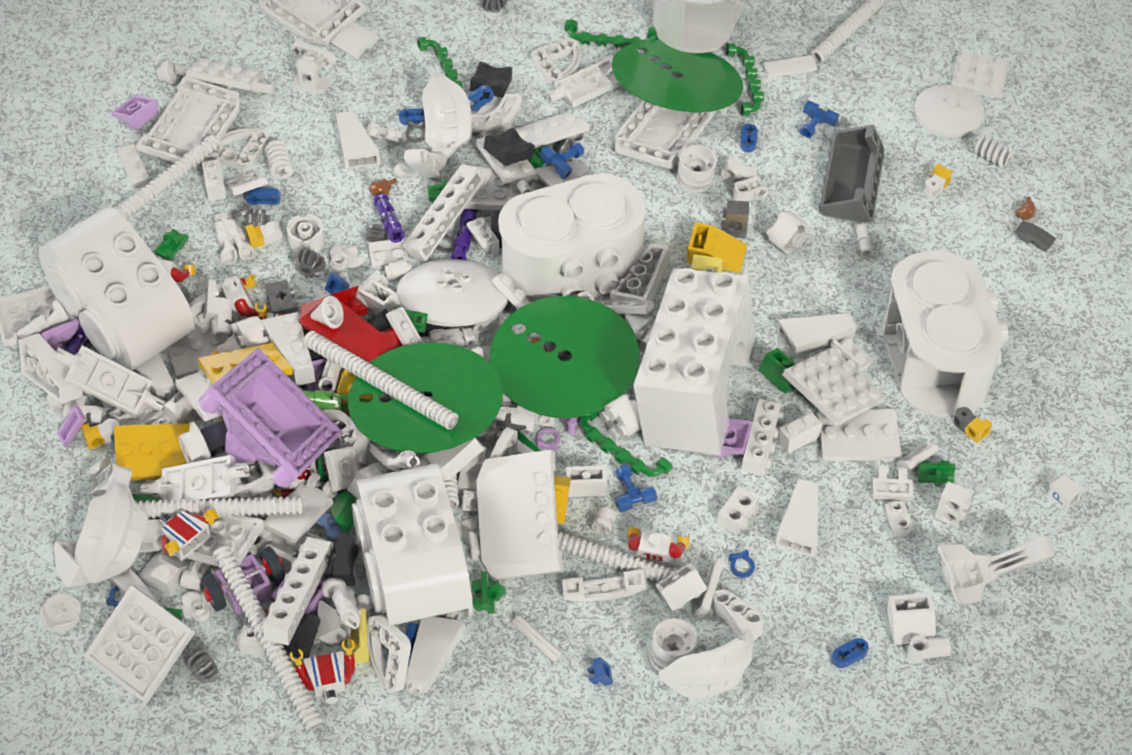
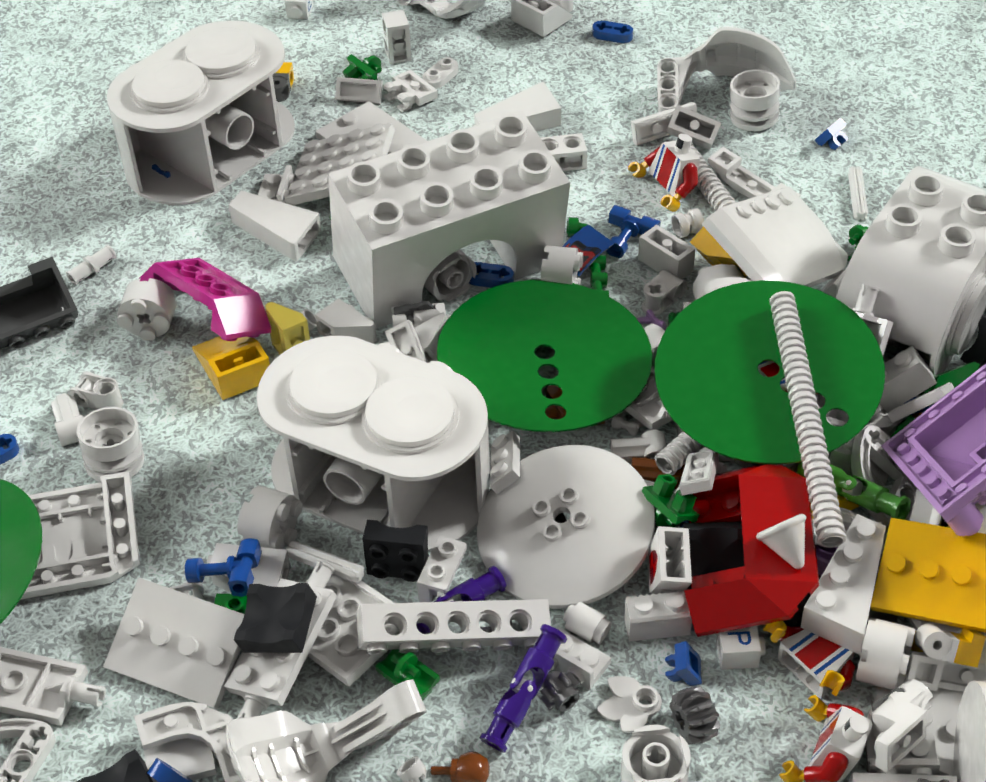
camera: 130 degrees left, 5 degrees down
(280, 298) = (775, 716): flat silver brick -> none
(563, 457) = (662, 292): none -> white piece
(636, 453) = (590, 243): none -> blue sticker
(736, 218) = (169, 358): flat silver brick -> none
(745, 556) = (609, 135): blue piece -> none
(766, 249) = (234, 306): none -> dark pink slope

